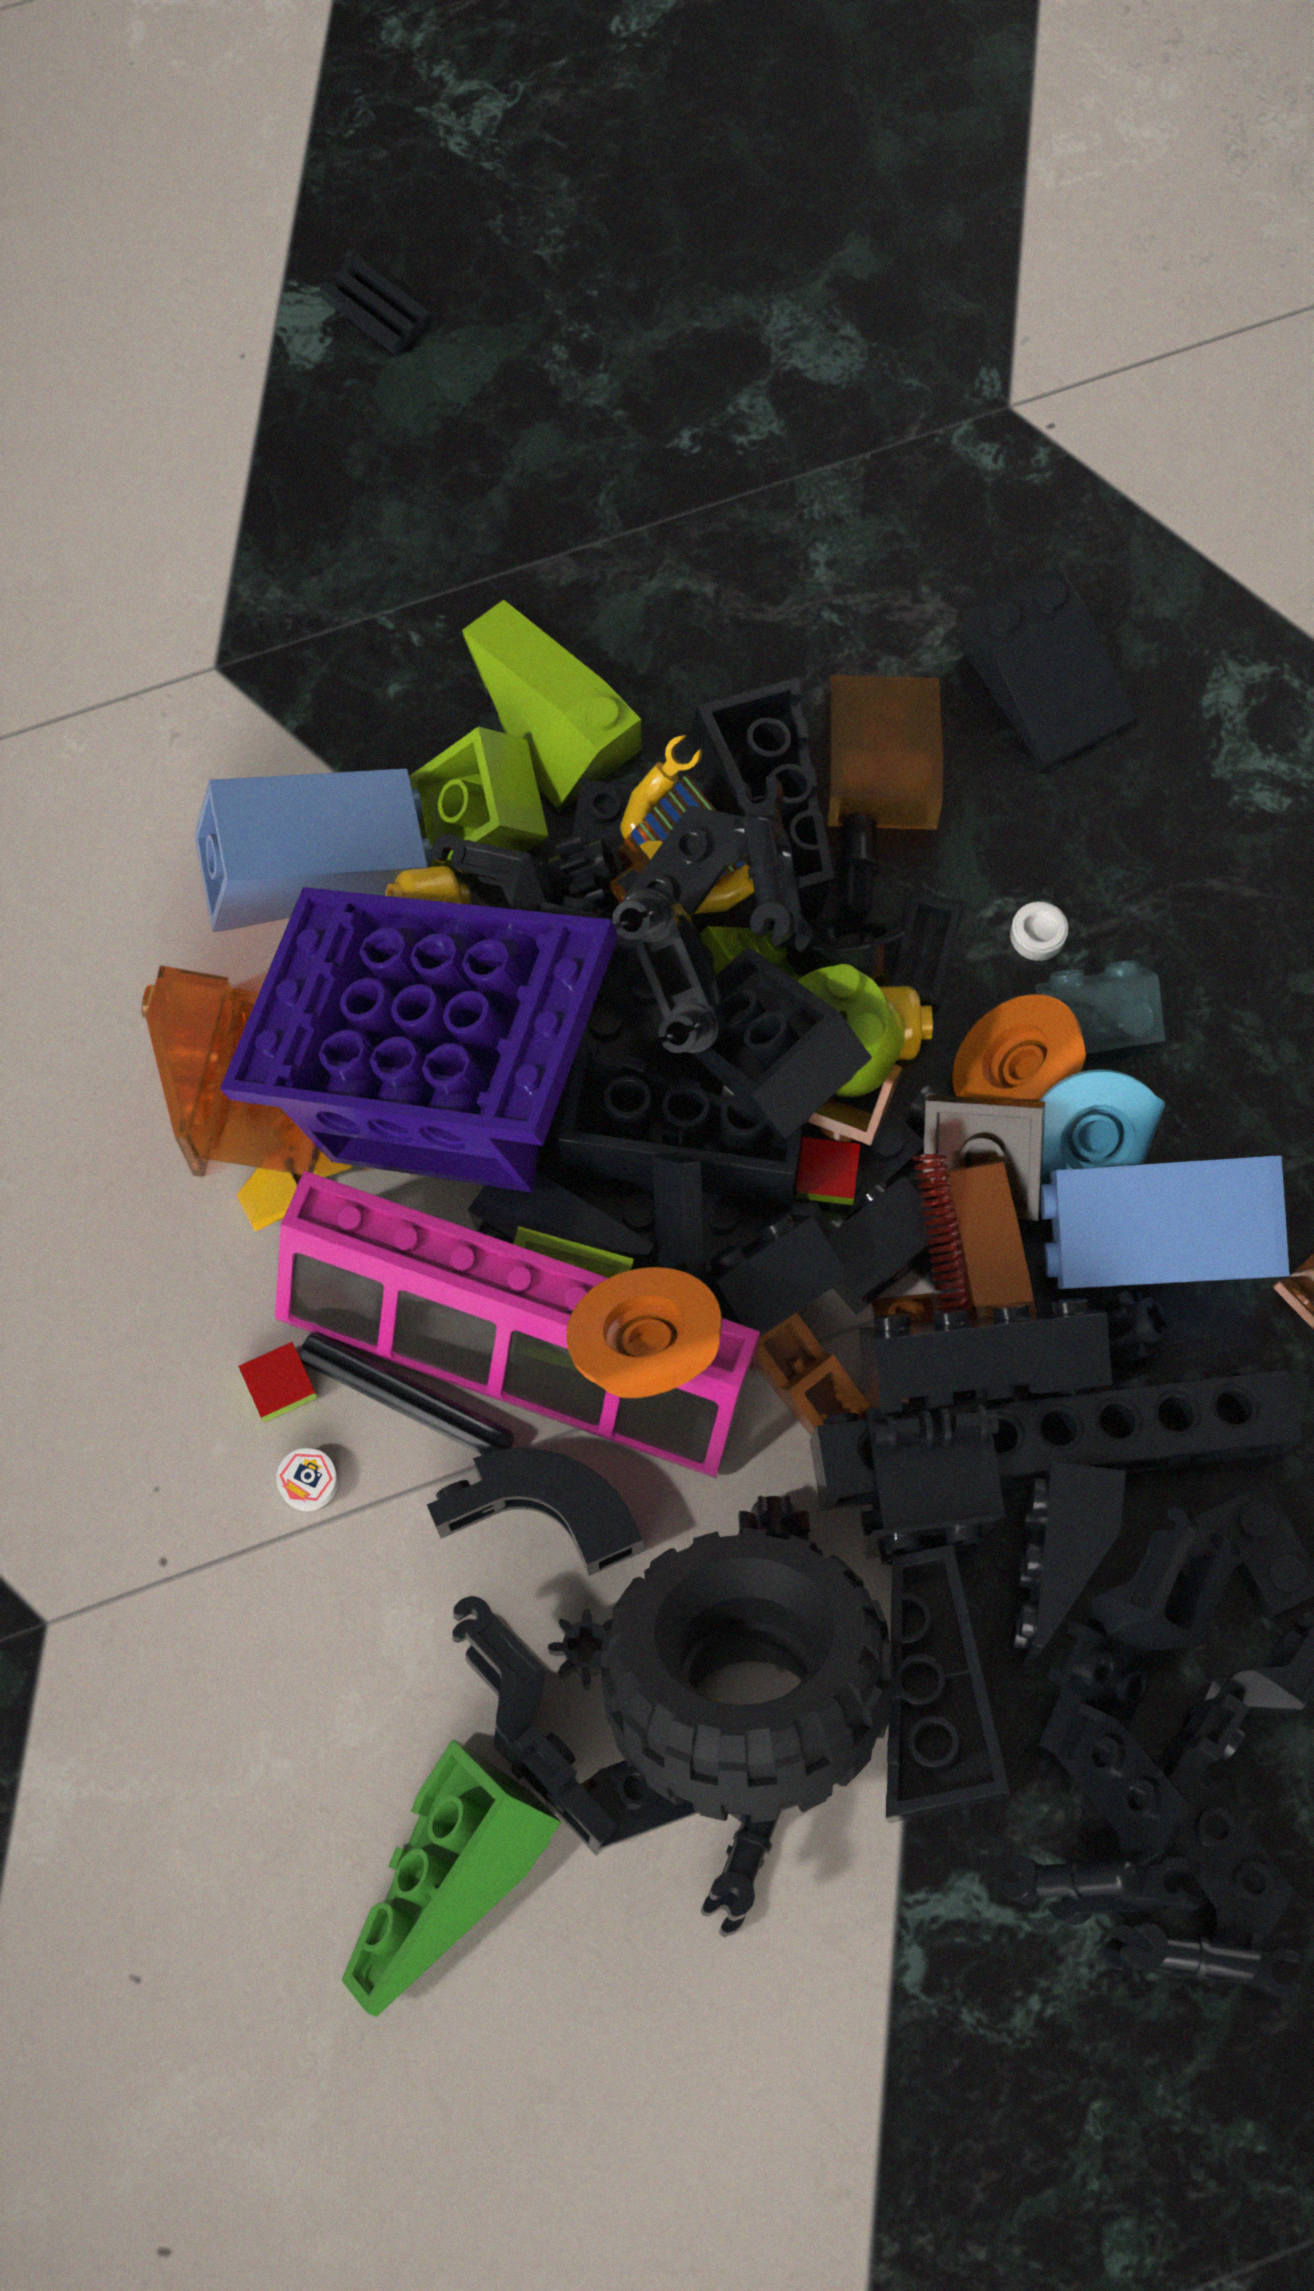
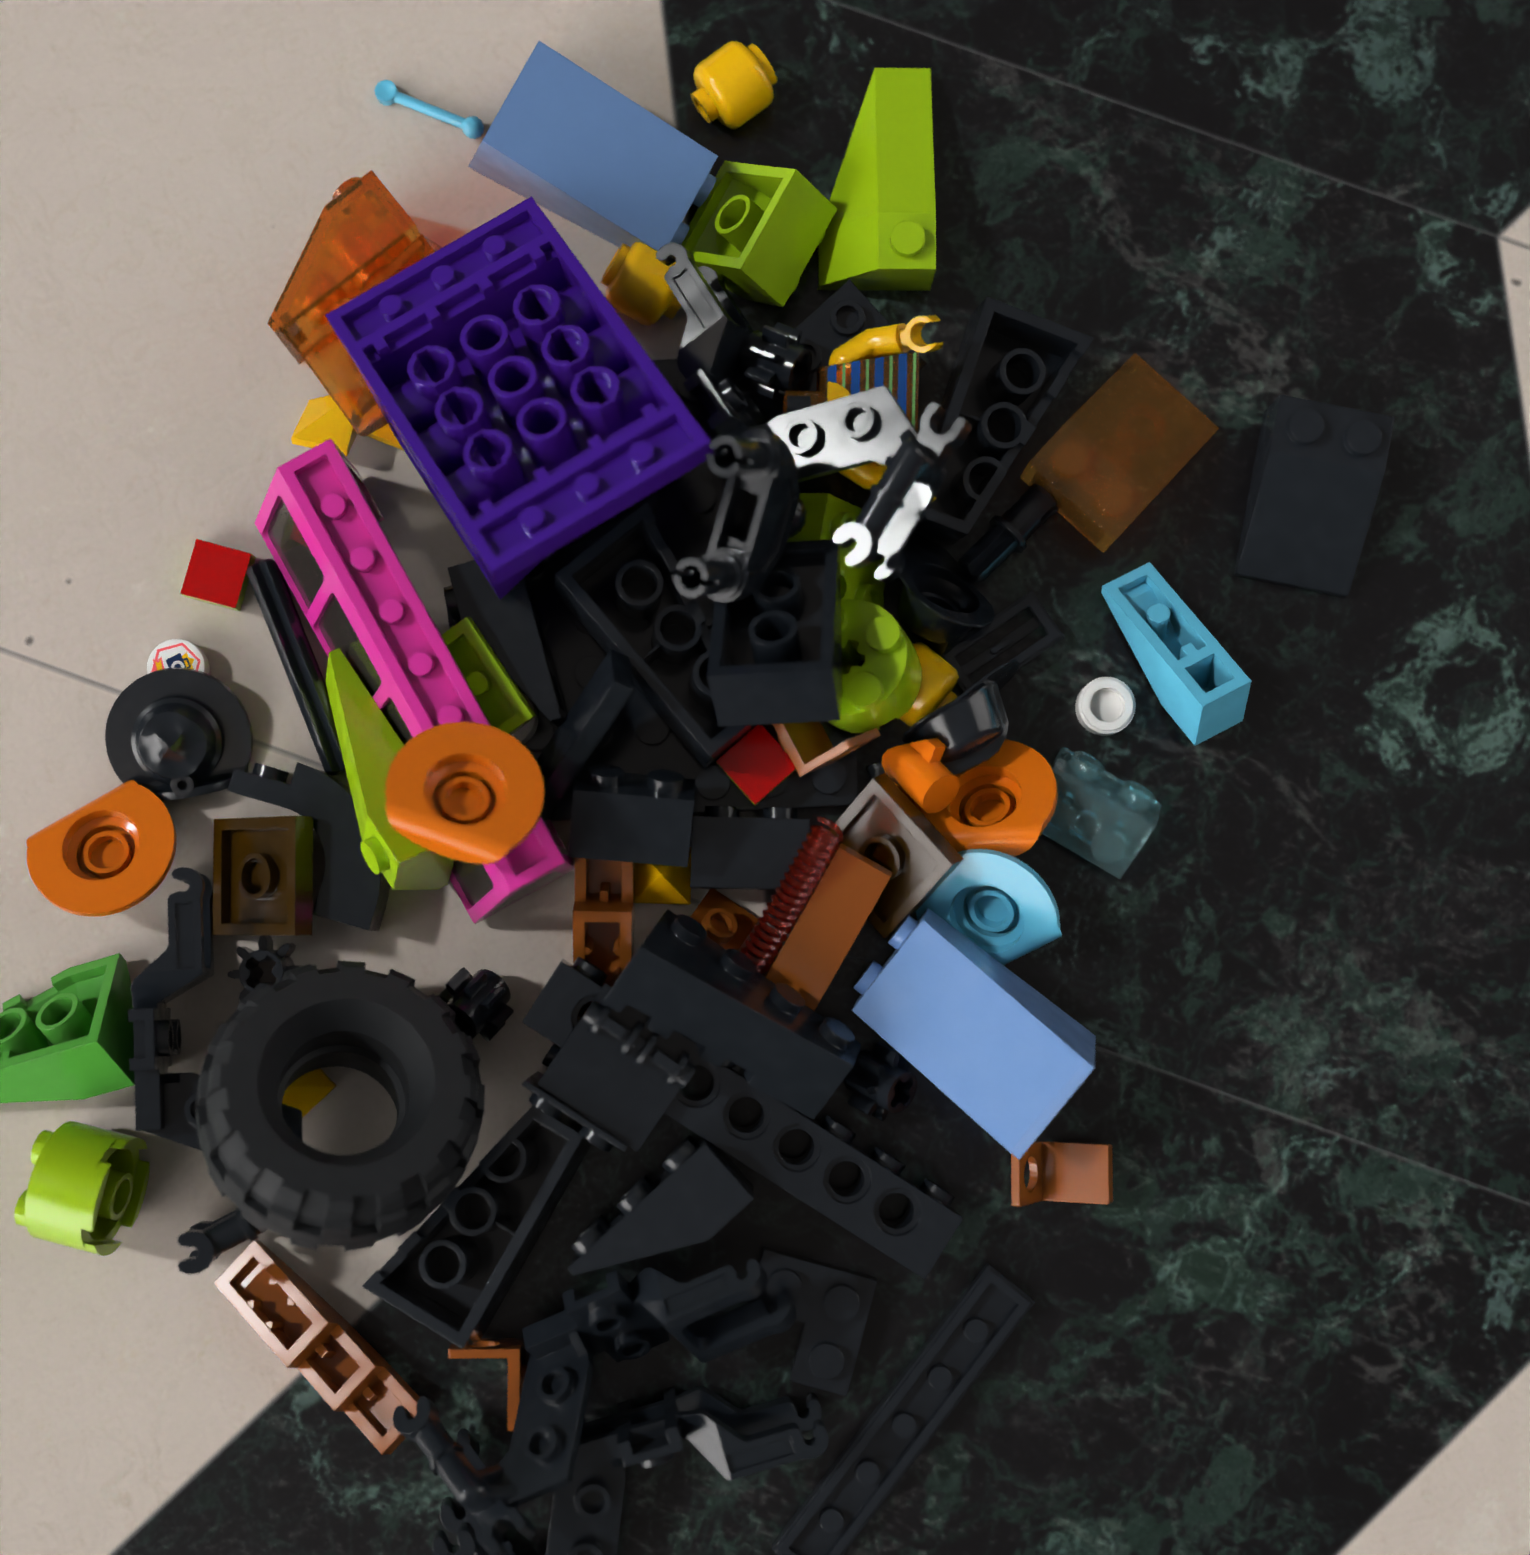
camera: 35 degrees right, 15 degrees up
(104, 927) = (388, 95): none -> medium azure hinge
(352, 1530) = (178, 734): none -> black hat
(369, 717) = (733, 84): none -> yellow head
(376, 1661) = (104, 853): none -> orange hat
(522, 1568) = (263, 876): none -> dark brown plate
(556, 1411) = (367, 752): none -> lime wedge
(590, 1940) = (83, 1187): none -> lime brick
(832, 1320) = (663, 883): none -> yellow slope
(889, 1912) = (317, 1342): none -> dark orange slope
(956, 1072) = (921, 775): none -> orange piece
(957, 1019) = (970, 725): none -> black piece
(1065, 850) = (1178, 654): none -> medium azure slope
(1066, 1794) = (500, 1348): none -> dark orange bracket

